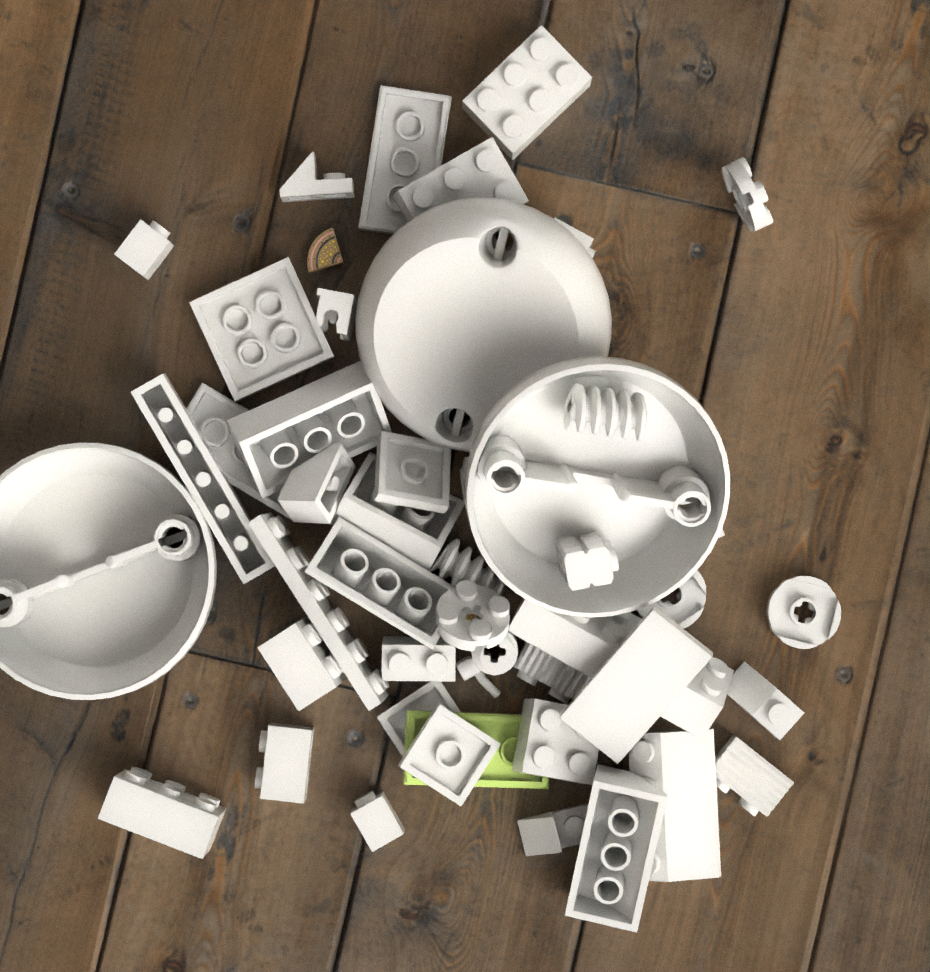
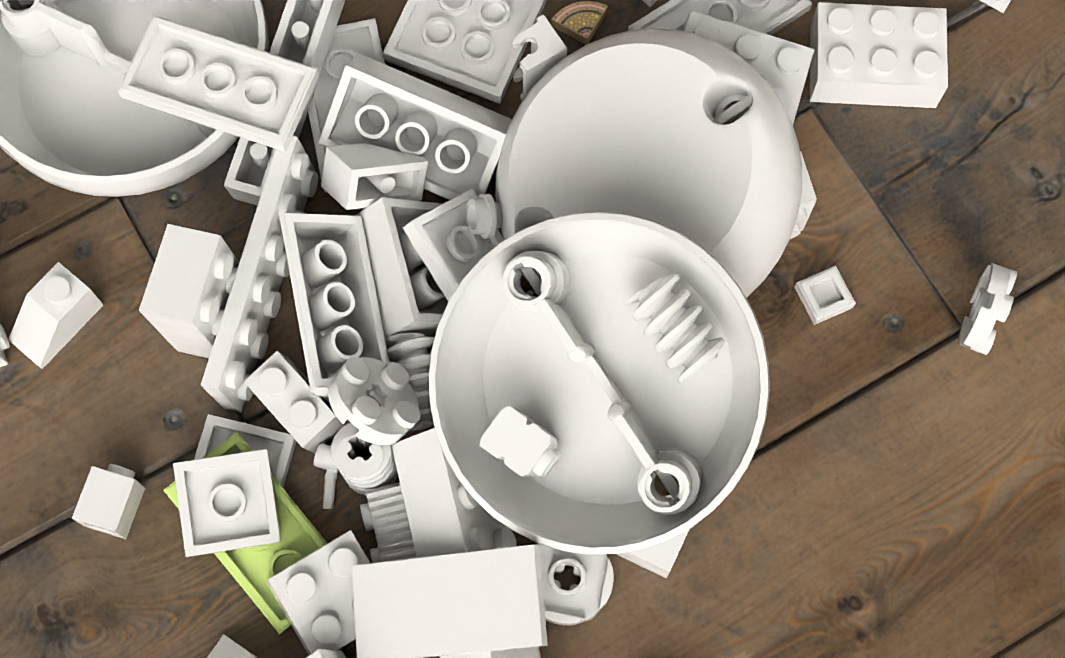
camera: 45 degrees right, 15 degrees down
(179, 531) = (219, 83): none -> white tile
(224, 756) = (53, 315): none -> white slope
(285, 762) = (93, 373): white brick -> none
(410, 443) = (484, 216): none -> white plate
(643, 277) = (824, 295): none -> white tile

